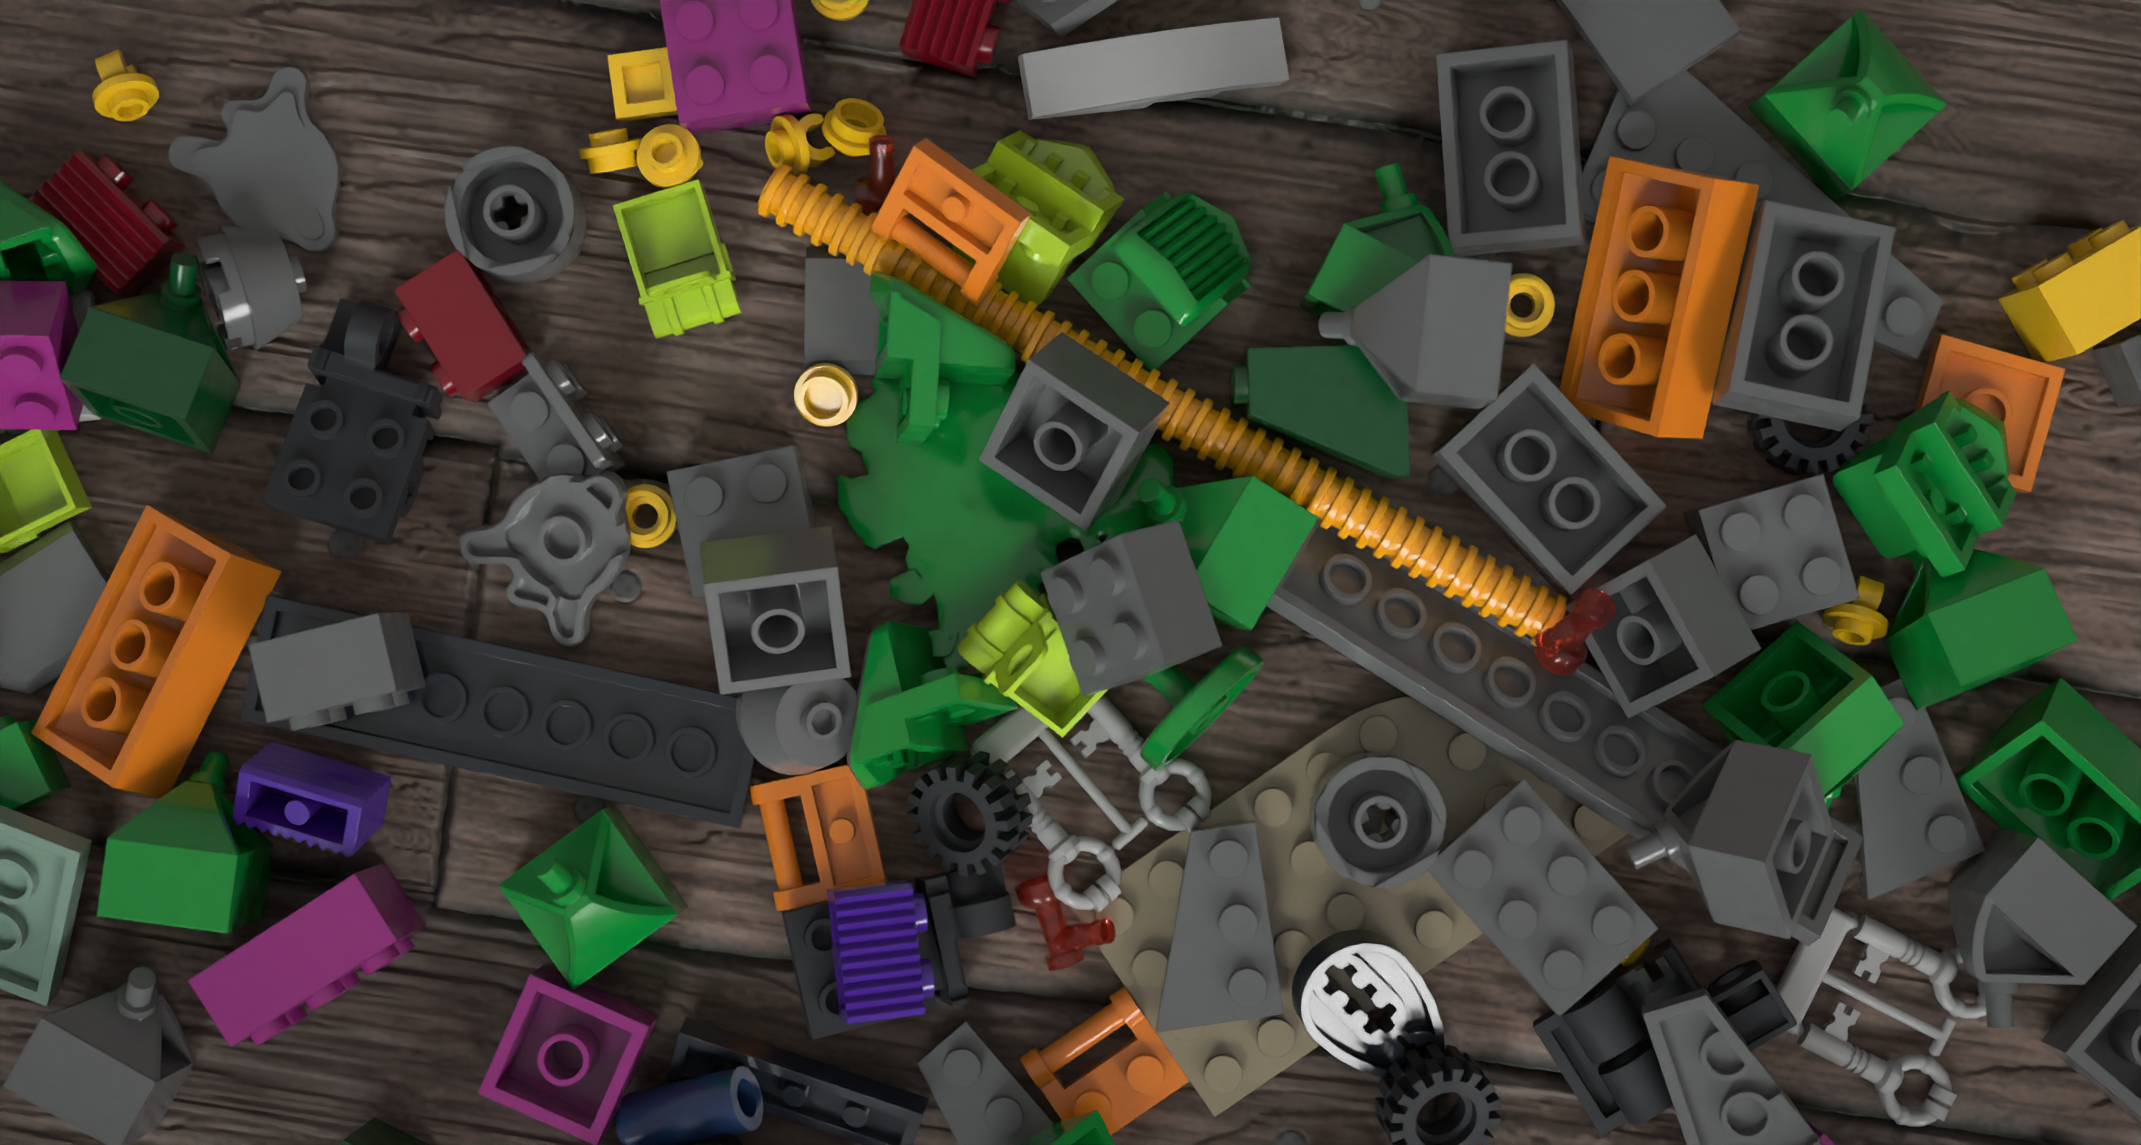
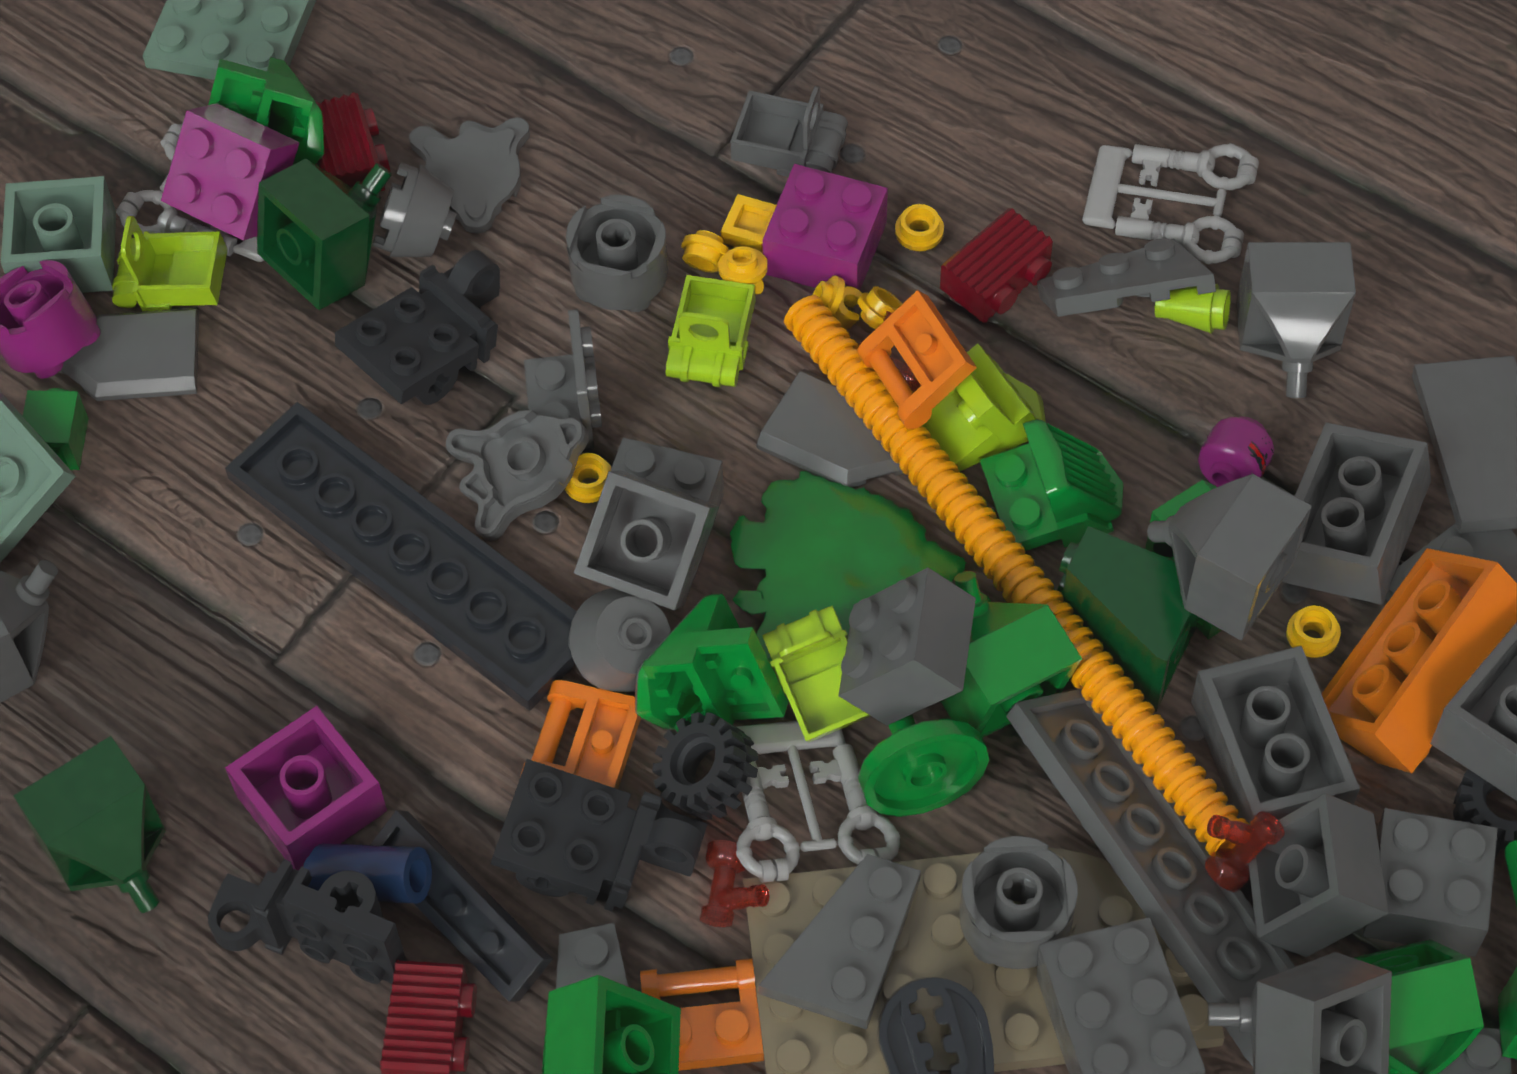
camera: 30 degrees right, 30 degrees down
(123, 90) = (407, 83): yellow plate -> none
(155, 654) = (199, 402): orange slope -> none
(188, 860) = (126, 531): green piece -> none
(309, 957) = (168, 626): magenta brick -> none
(311, 798) = (240, 534): dark purple brick -> none
(338, 665) = (318, 442): dark grey brick -> none
(464, 327) = (538, 303): dark red brick -> none
(593, 896) = (393, 692): green piece -> none
(826, 394) = (763, 459): yellow plate -> none
(879, 951) = (580, 805): dark purple brick -> none
(926, 350) = (856, 446): green piece -> none
(1073, 430) = (930, 520): dark grey brick -> none
(1153, 68) = (1115, 359): light grey slope -> none
(1345, 126) = (1235, 450): none -> magenta head
(1857, 620) = (1487, 960): yellow plate -> none

